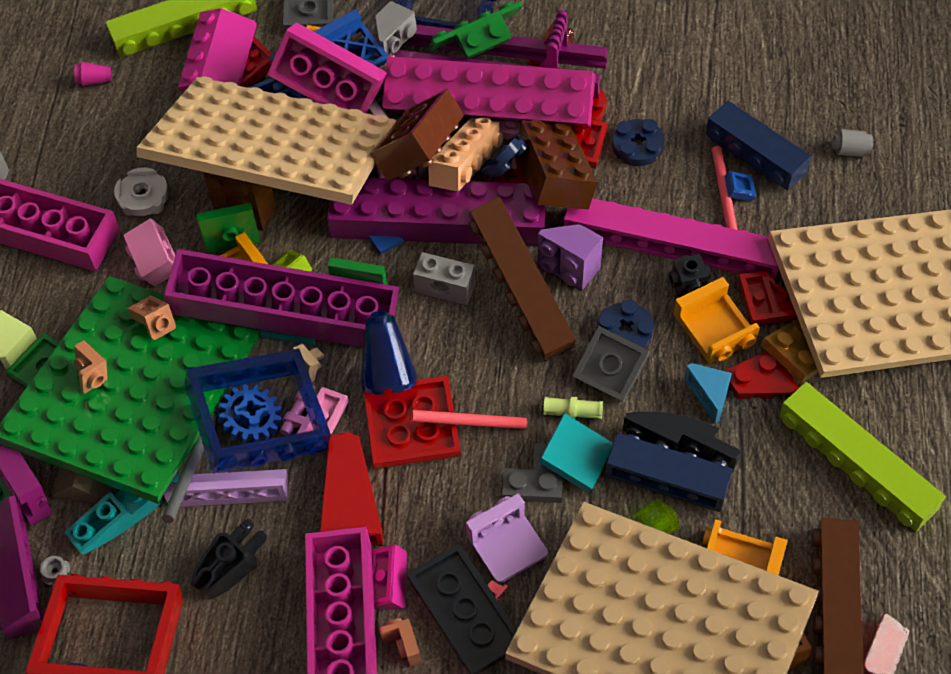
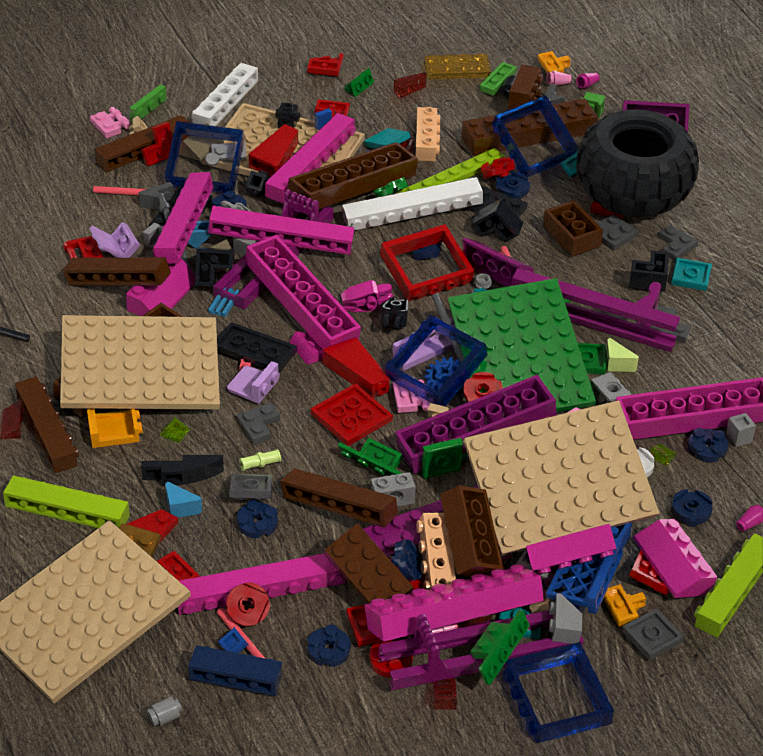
camera: 145 degrees right, 15 degrees down
(37, 167) = (701, 437): none -> dark blue plate
(73, 275) = (607, 388): none -> light grey brick
(91, 367) = (541, 329): nougat bracket -> none
(96, 191) = (663, 454): none -> clear neon green slope
(140, 125) = (688, 515): none -> dark blue plate
(154, 315) = (546, 375): nougat bracket -> none
(222, 333) = (478, 381): none -> red plate
(243, 619) = (366, 296): none -> dark pink hinge
(385, 357) = (384, 420): clear blue cone -> none
(403, 634) = (275, 323): nougat bracket -> none
(430, 336) = (376, 455): none -> green bracket
(468, 419) = (316, 423): coral bar -> none
(570, 253) = (319, 529): medium lavender slope -> none
(576, 453) = (241, 434): teal tile -> none
(669, 472) = (173, 444): dark blue brick -> none
(689, 274) = (232, 557): black brick -> none
(705, 208) = (236, 609): none -> red plate
(714, 321) = (198, 545): light orange panel -> none

